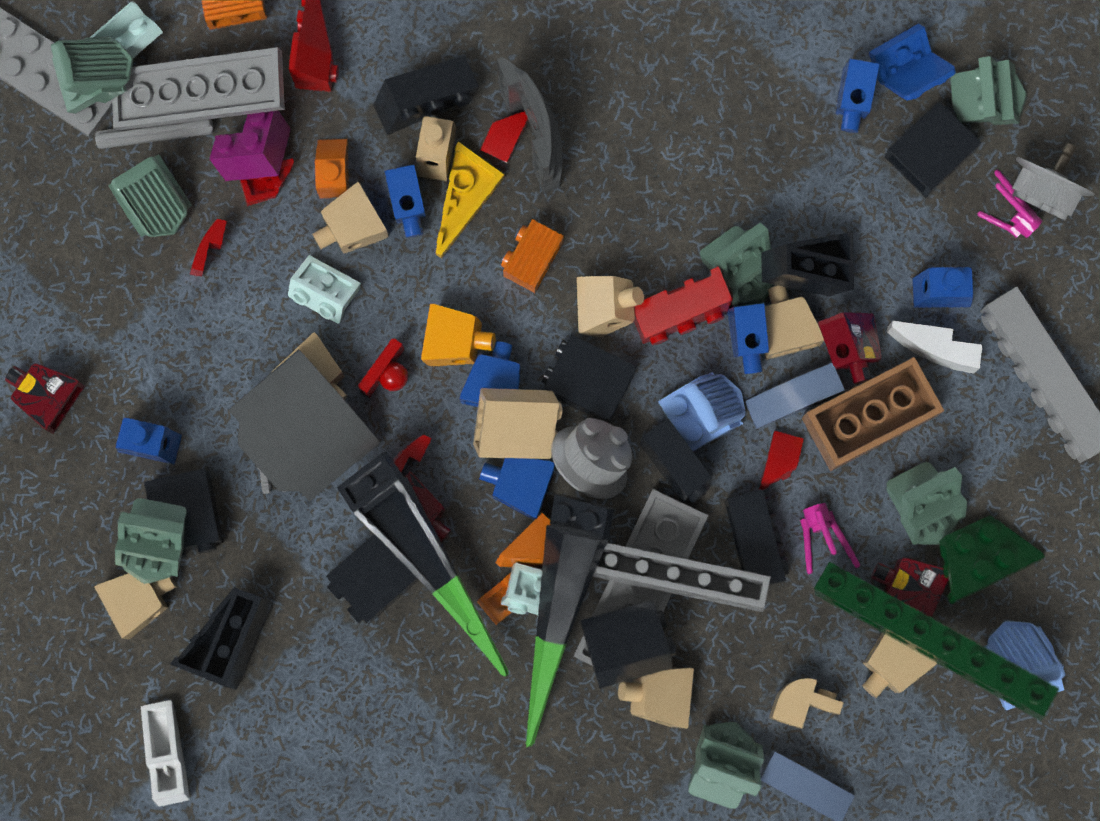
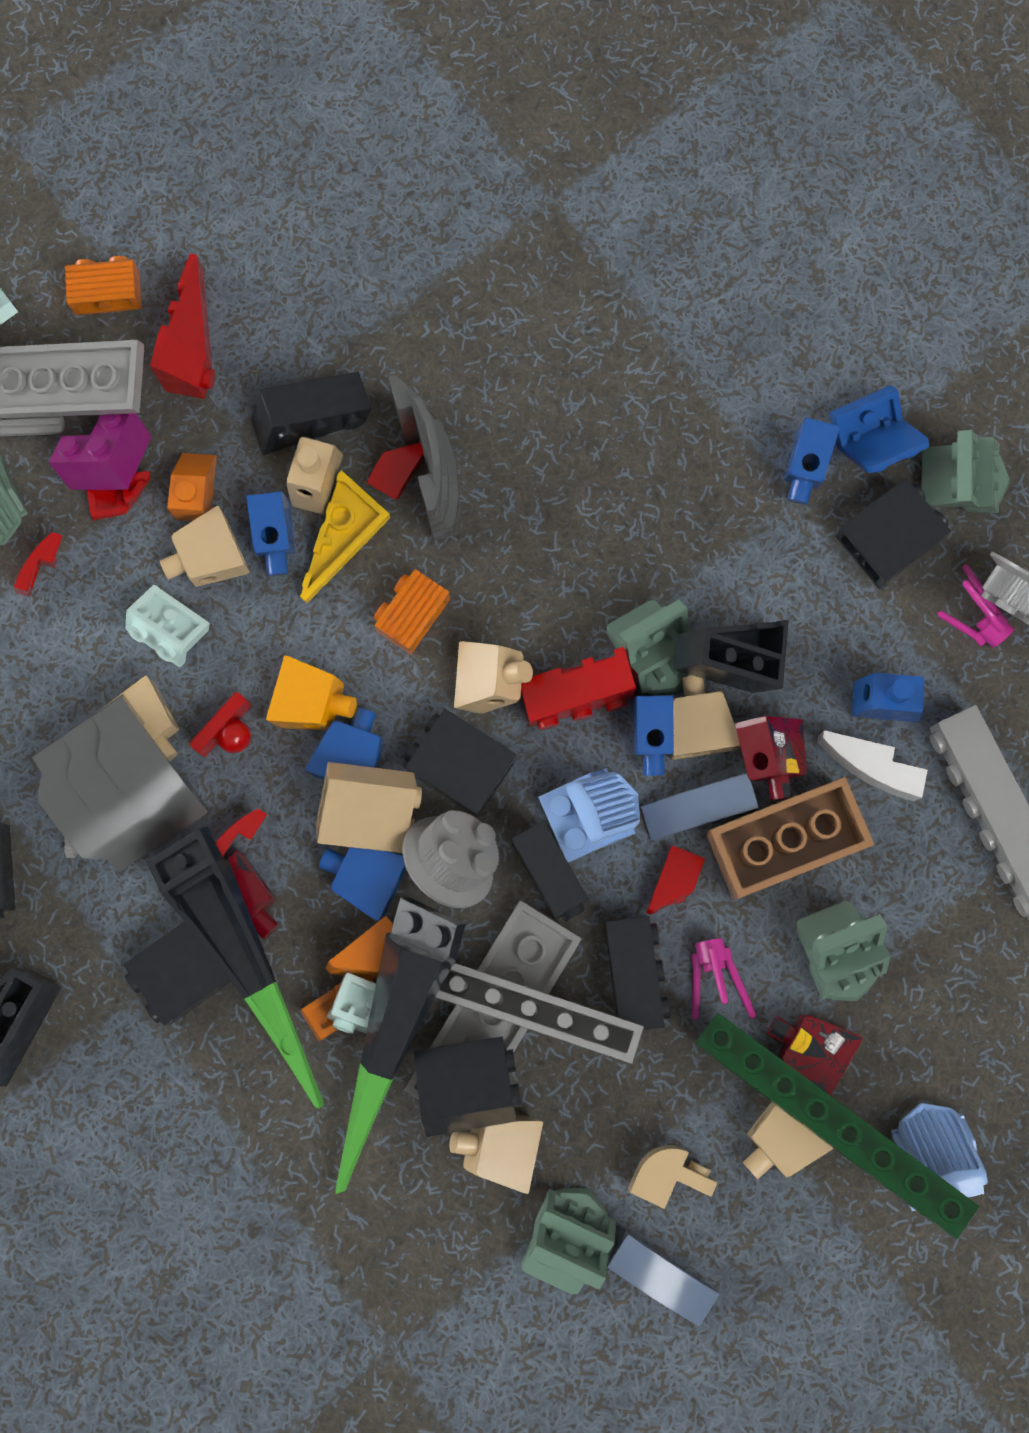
camera: 10 degrees right, 0 degrees up
(983, 556) = (903, 1023): dark green wing -> none

